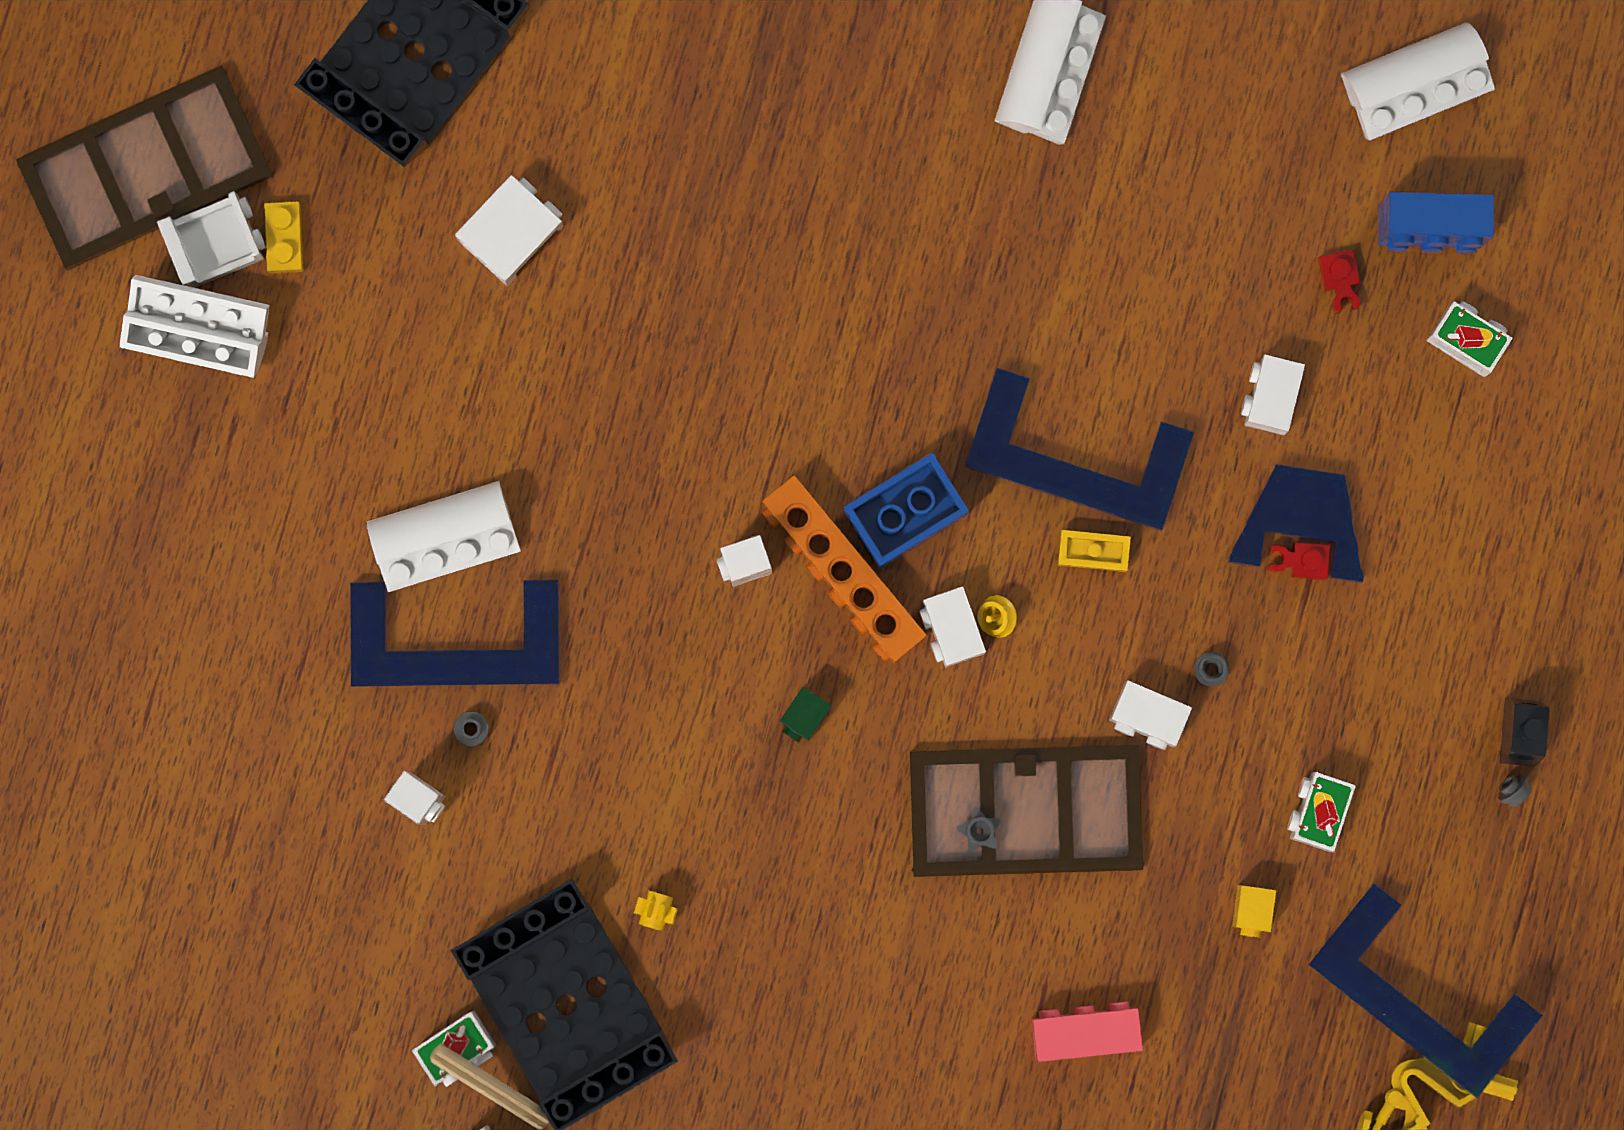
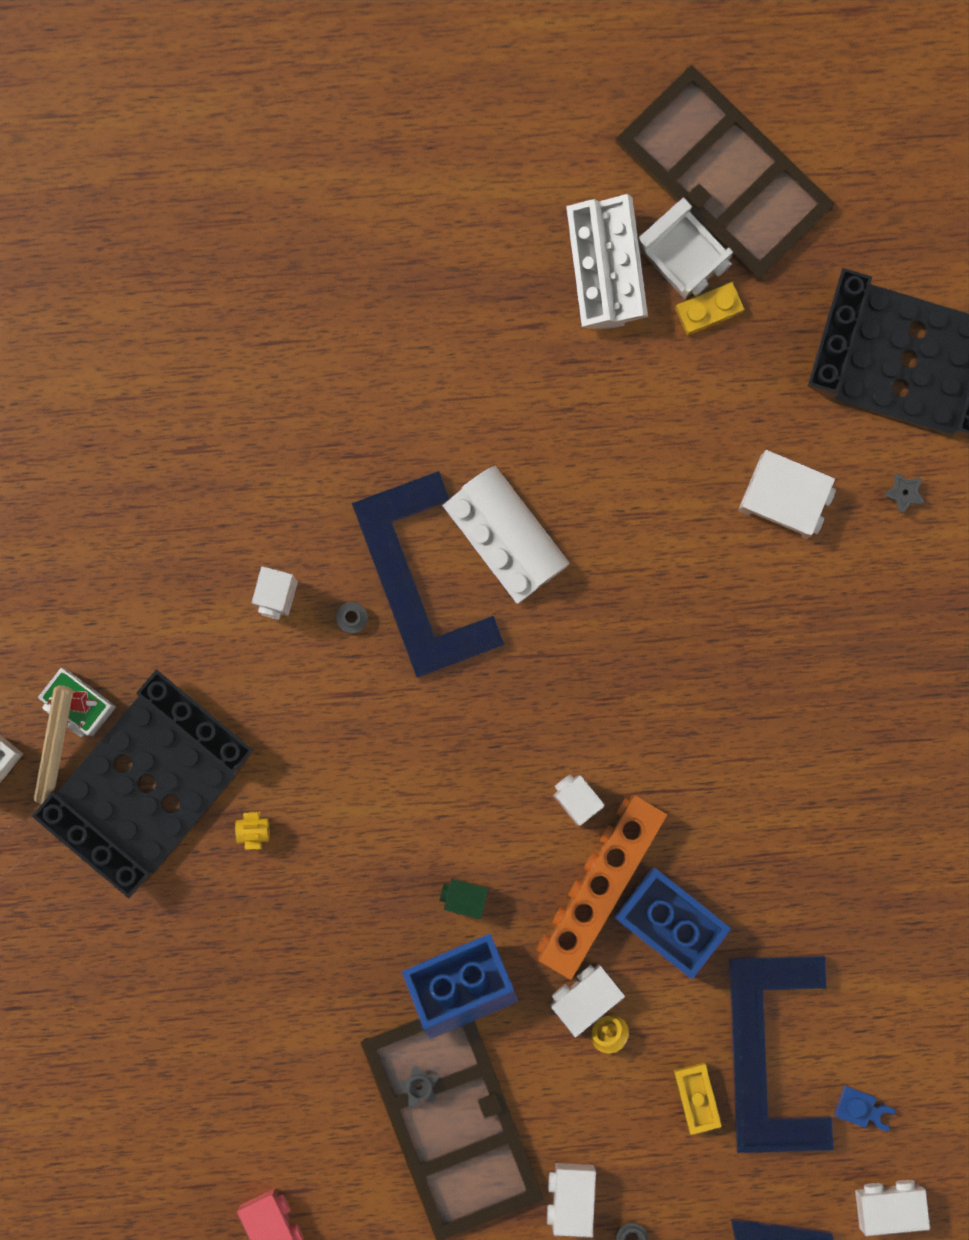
camera: 65 degrees right, 0 degrees up
(549, 116) = (897, 495): none -> dark grey plate
(892, 751) = (459, 986): none -> blue brick
(1163, 390) = (859, 1108): none -> blue plate

